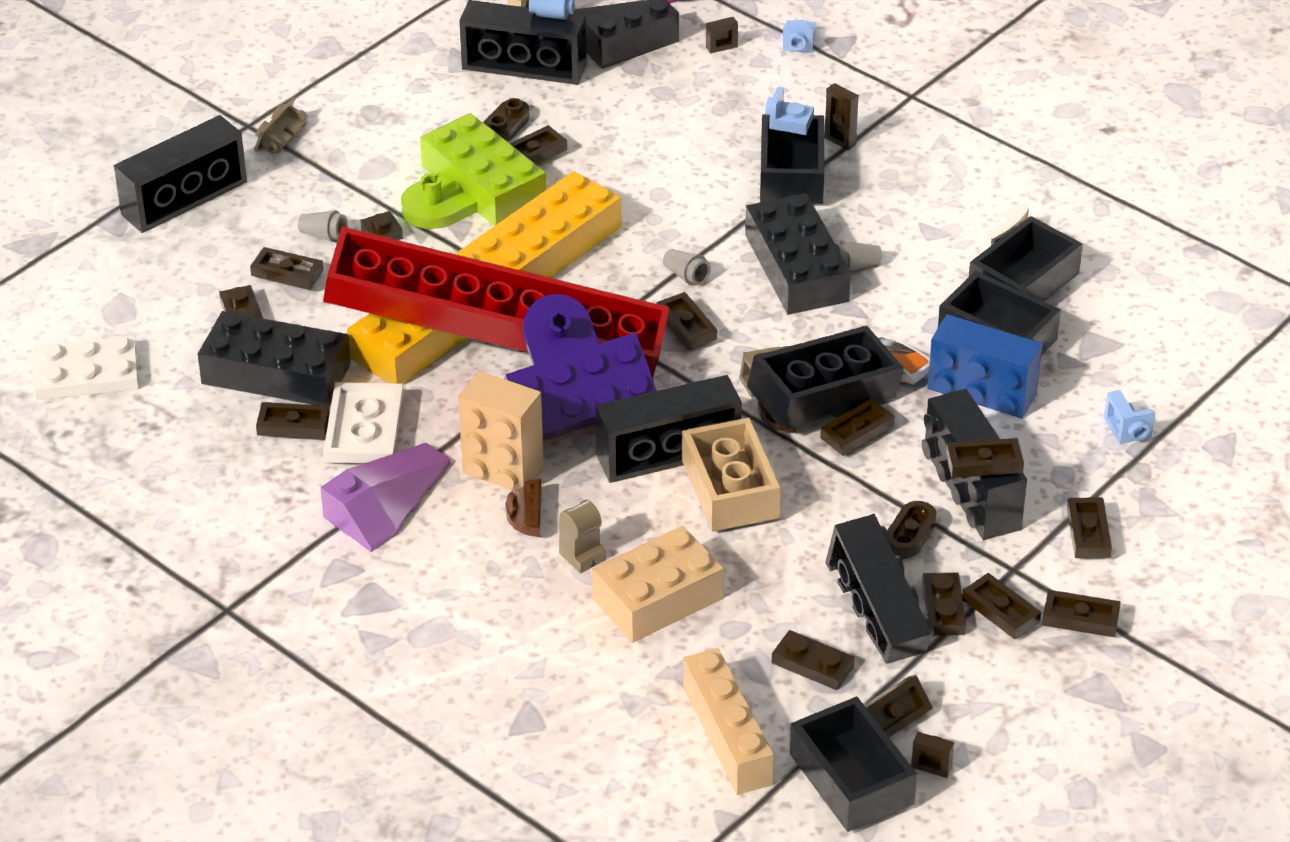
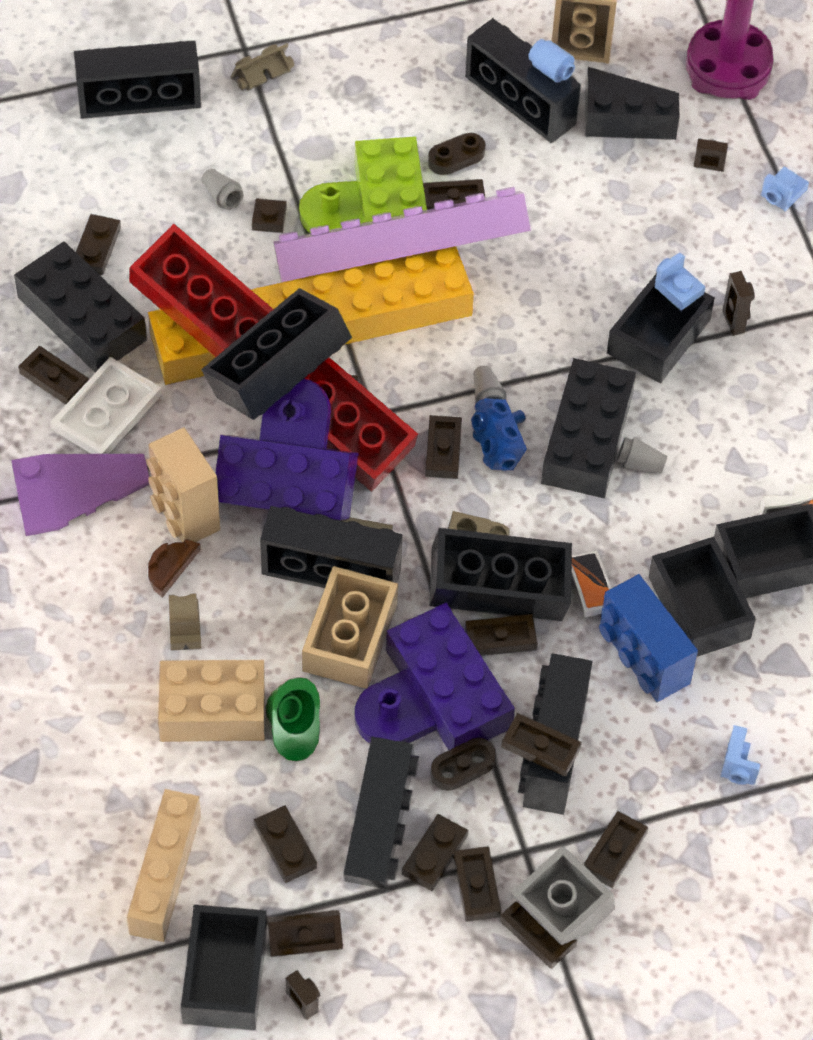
camera: 30 degrees right, 15 degrees up
(286, 268) = (158, 213): dark brown plate -> none
(516, 281) = (276, 353): none -> black brick
(526, 179) = (401, 235): none -> lavender brick
(726, 288) = (498, 433): none -> blue brick
(740, 559) = (294, 718): none -> green piece
(836, 481) = (438, 686): none -> dark purple brick
(1087, 567) = (565, 897): none -> light grey slope

